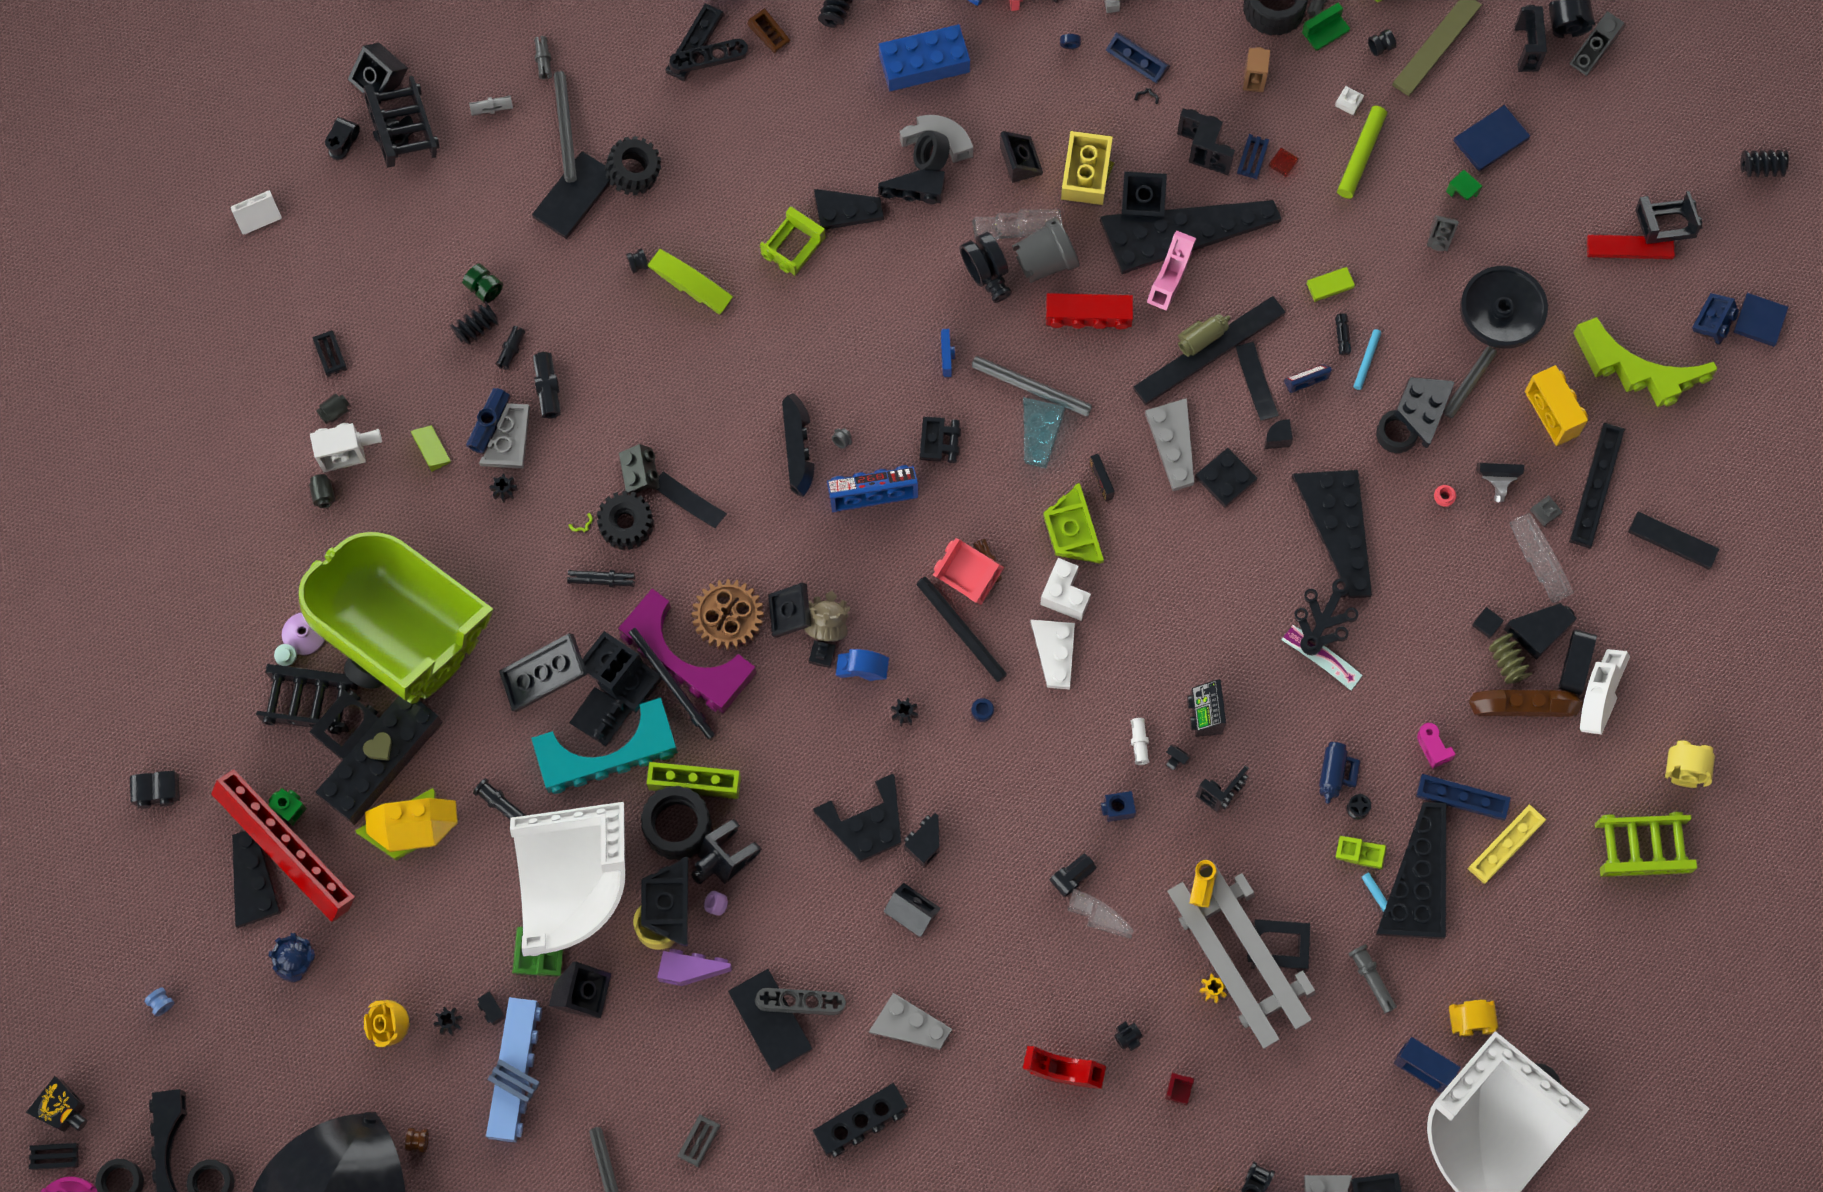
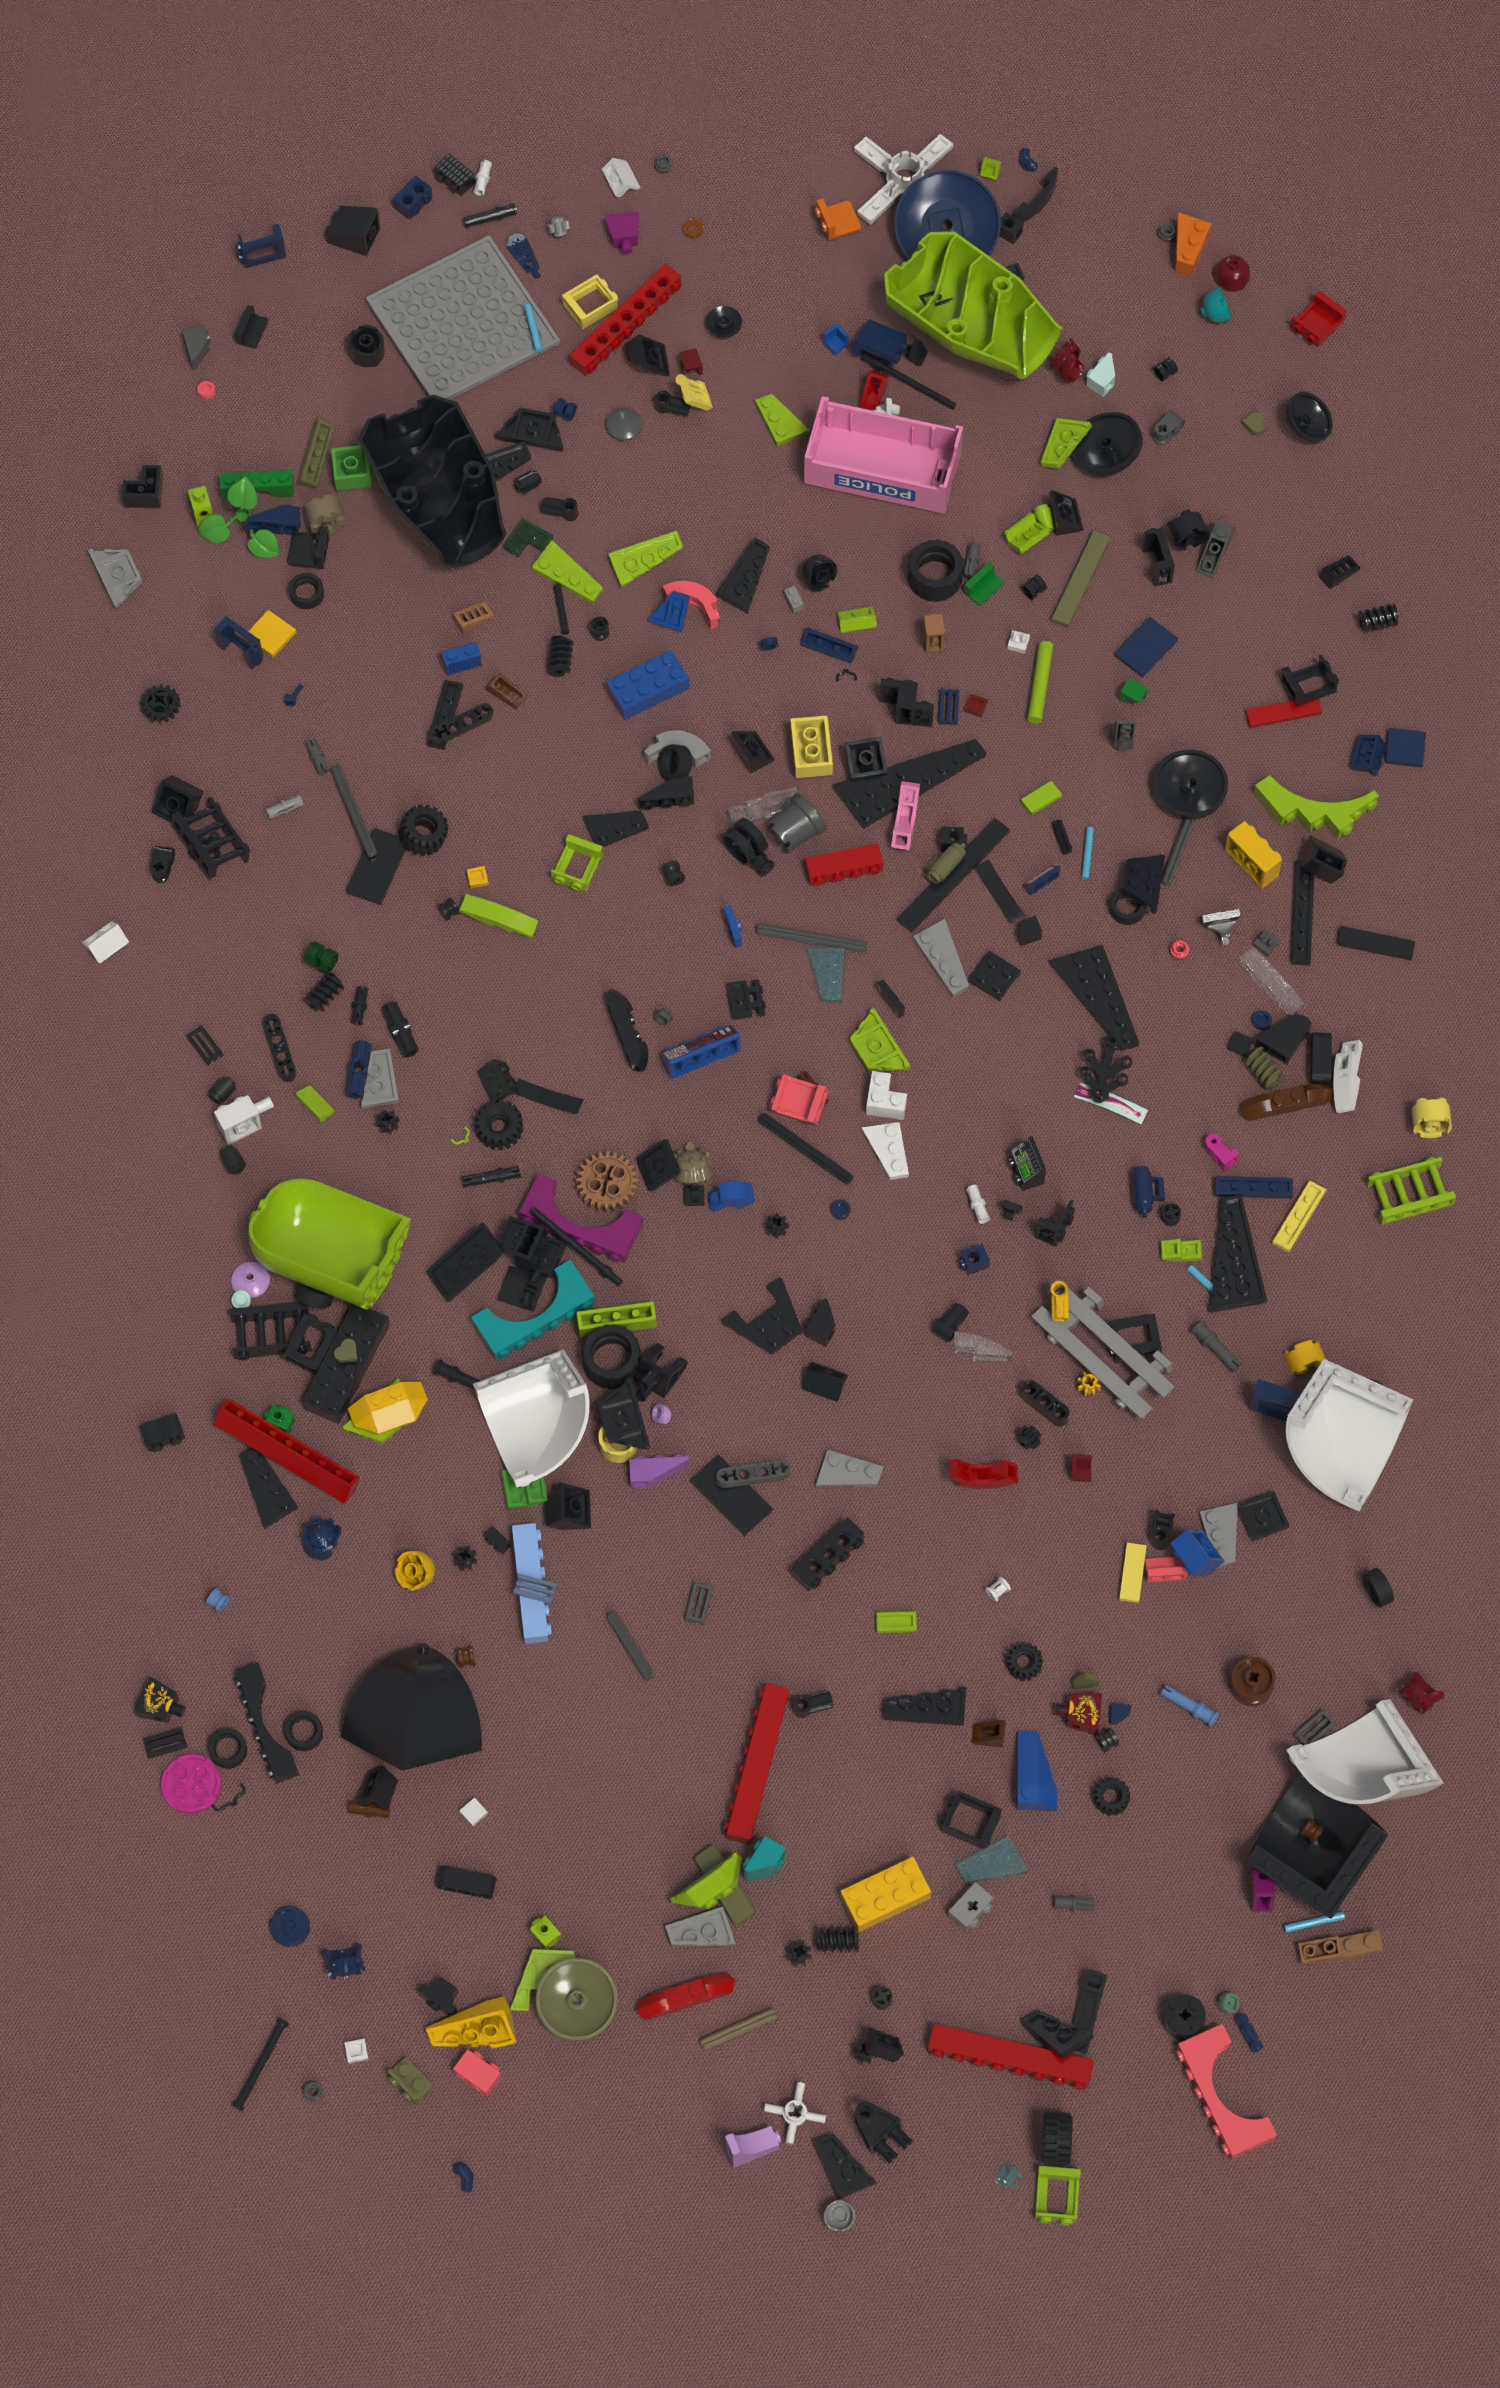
camera: 15 degrees left, 5 degrees down
(410, 375) = (280, 1047): none -> black beam
(679, 231) = (477, 877): none -> yellow tile
(896, 278) = (673, 873): none -> pearl dark grey wheel
(1158, 1010) = (1049, 1411): none -> black beam
(1175, 35) = (856, 619): none -> lime slope
(1216, 300) = (952, 832): none -> black brick
(1519, 600) = (1262, 1020): none -> dark blue tile
(1635, 430) = (1323, 860): none -> black slope
(1720, 106) = (1328, 576): none -> black slope

